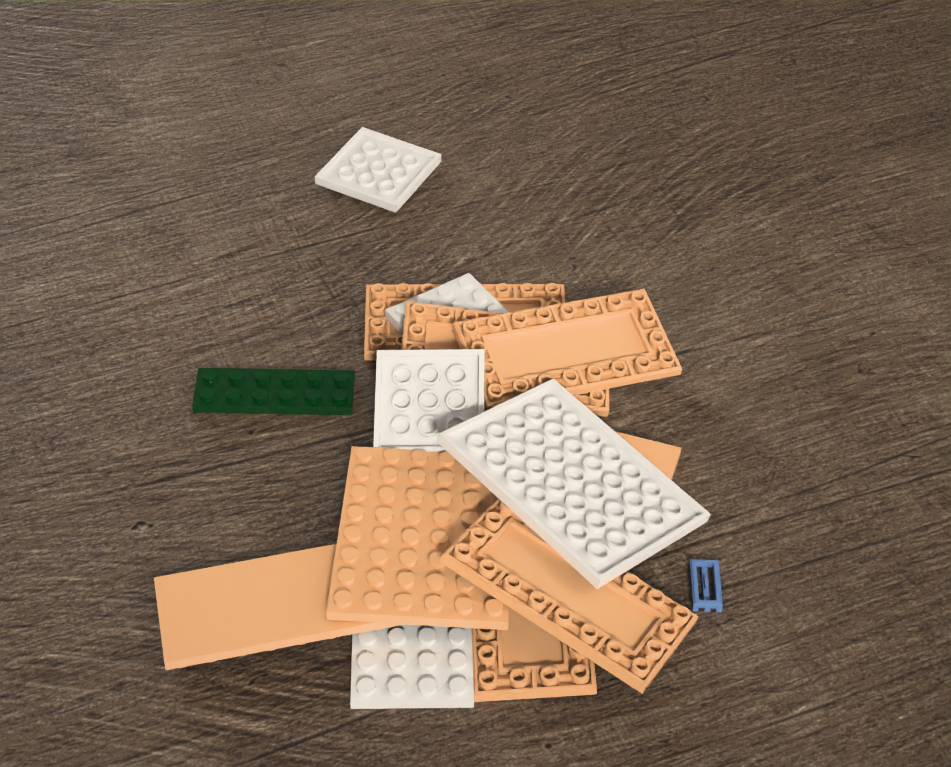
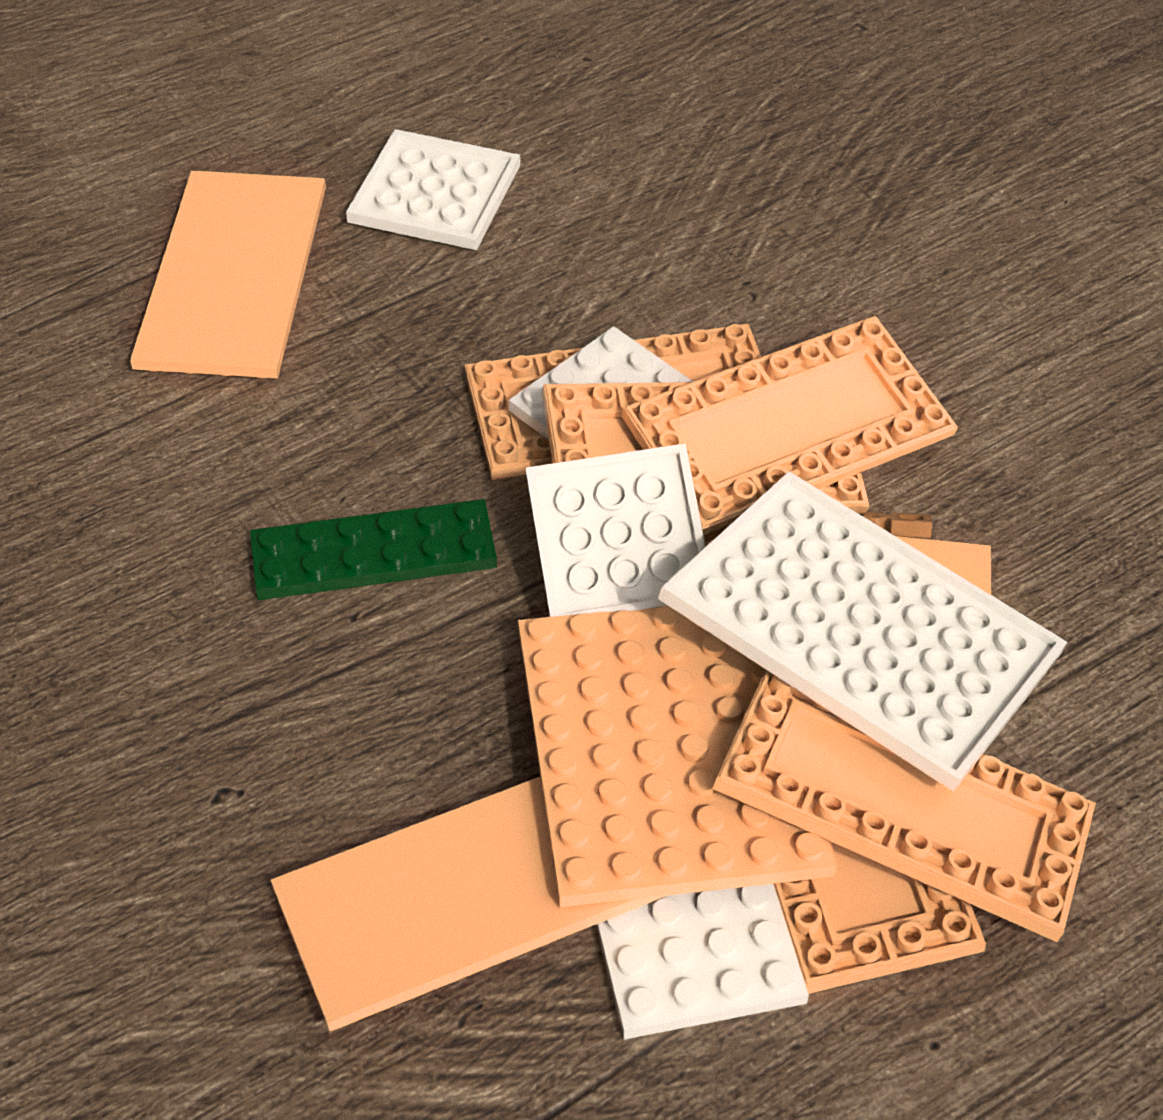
camera: 10 degrees left, 5 degrees up
(229, 207) = (230, 275): none -> light nougat tile
(626, 426) = (903, 523): none -> medium nougat plate
(706, 603) = (1093, 779): medium blue tile -> none

